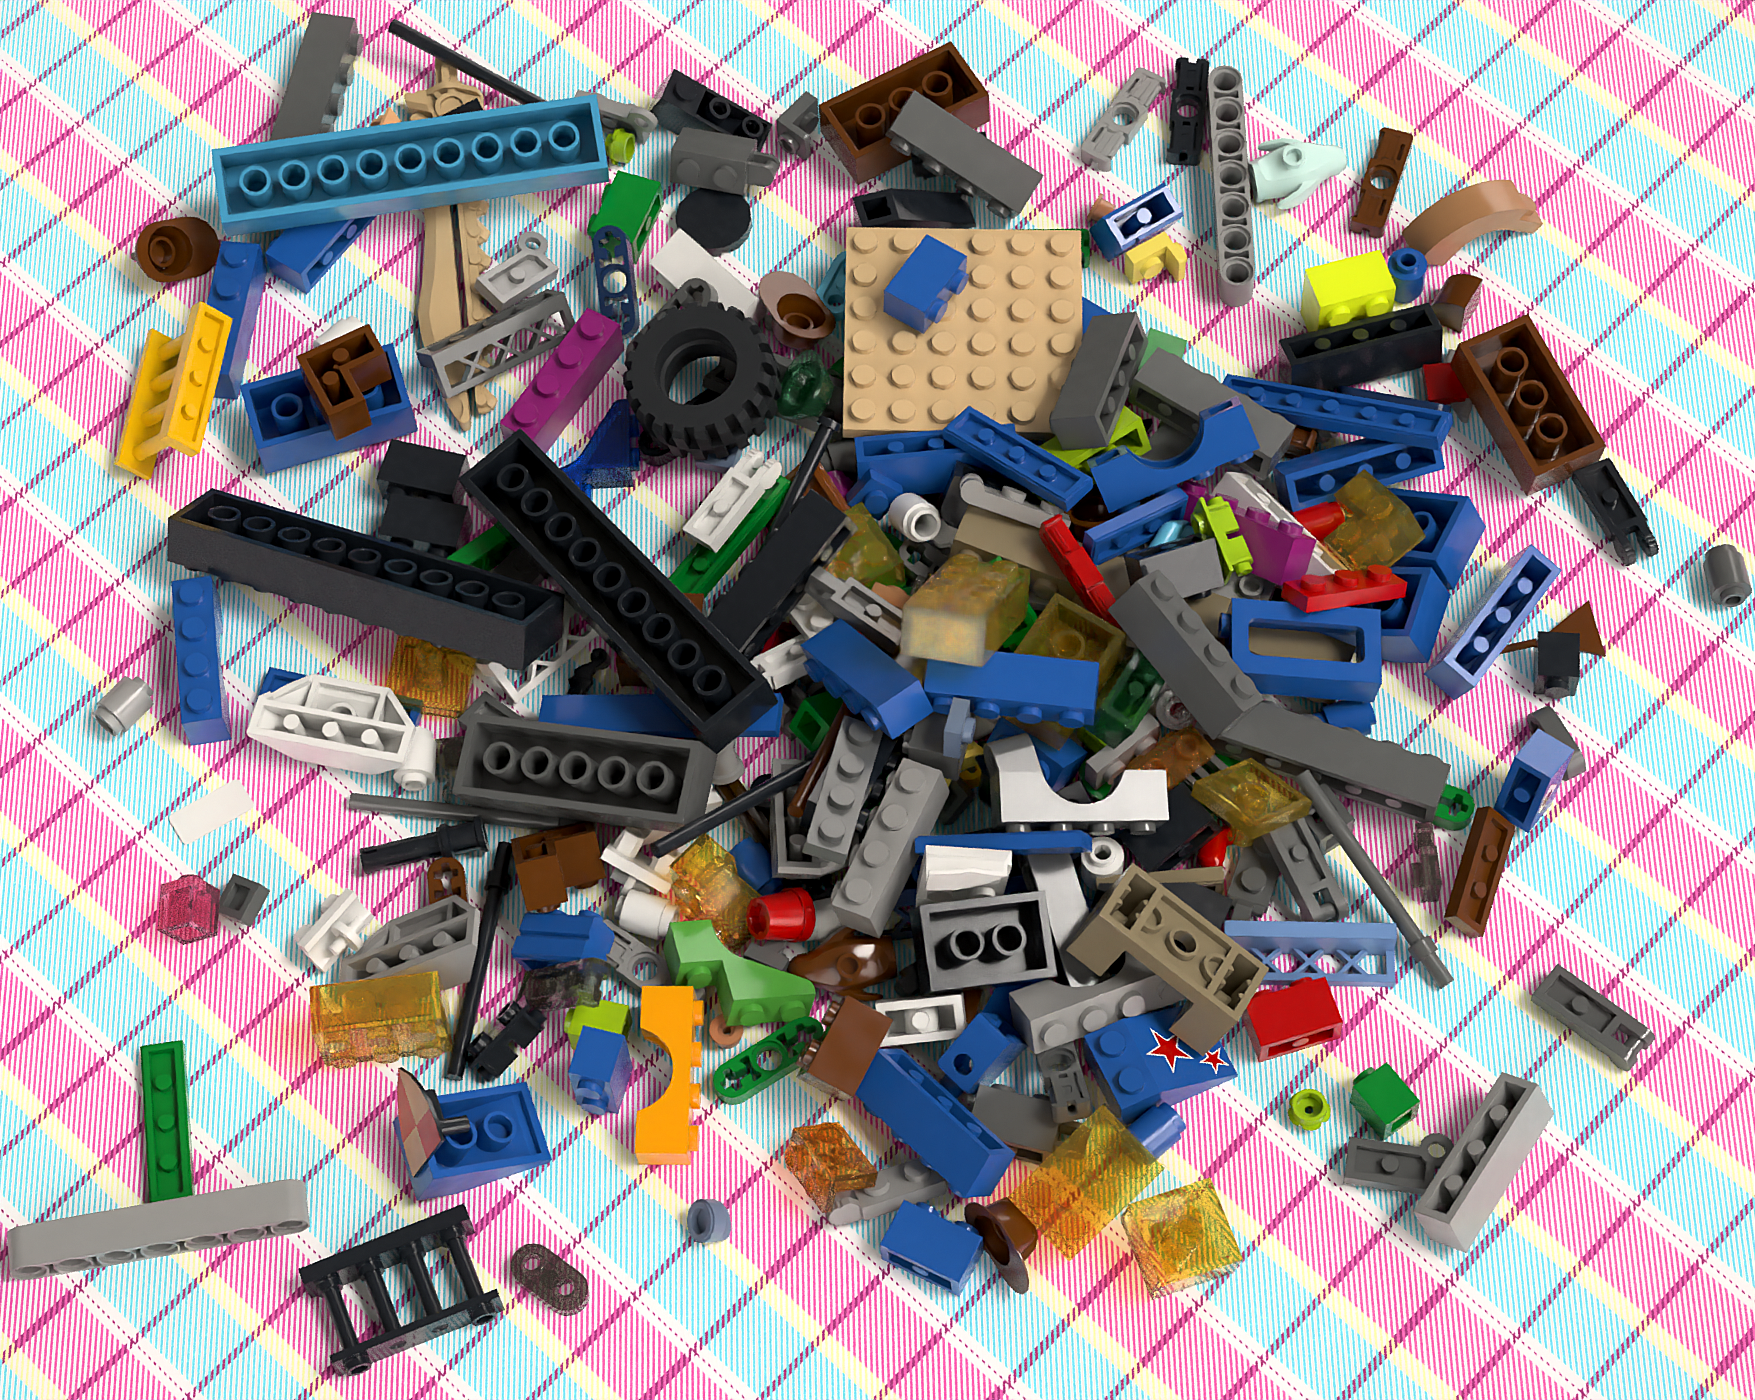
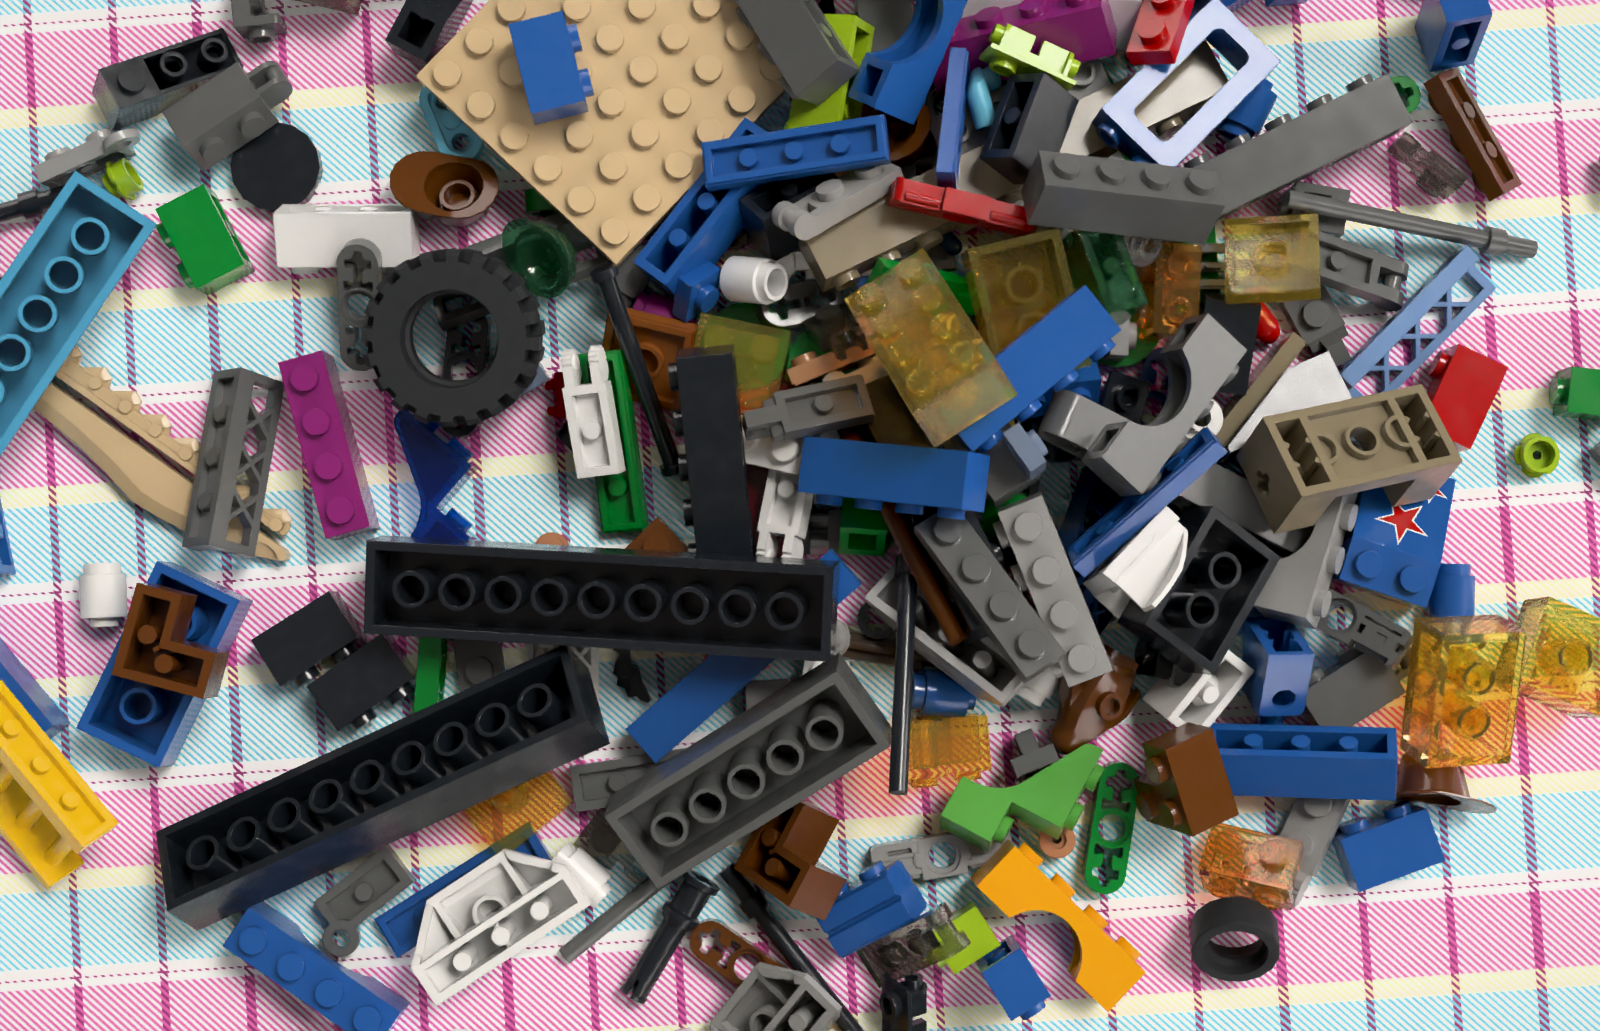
camera: 45 degrees left, 25 degrees up
(278, 646) = (361, 896): none -> dark grey hinge
(518, 274) = (177, 383): light grey hinge -> none
(622, 252) = (234, 300): dark blue beam -> none
(634, 868) = (856, 788): white hips -> none
(645, 914) = (898, 815): white brick -> none
(708, 1221) = (1205, 996): sand blue tile -> none
(740, 1201) = (1235, 915): none -> black tyre
(782, 916) = (1012, 727): red piece -> none

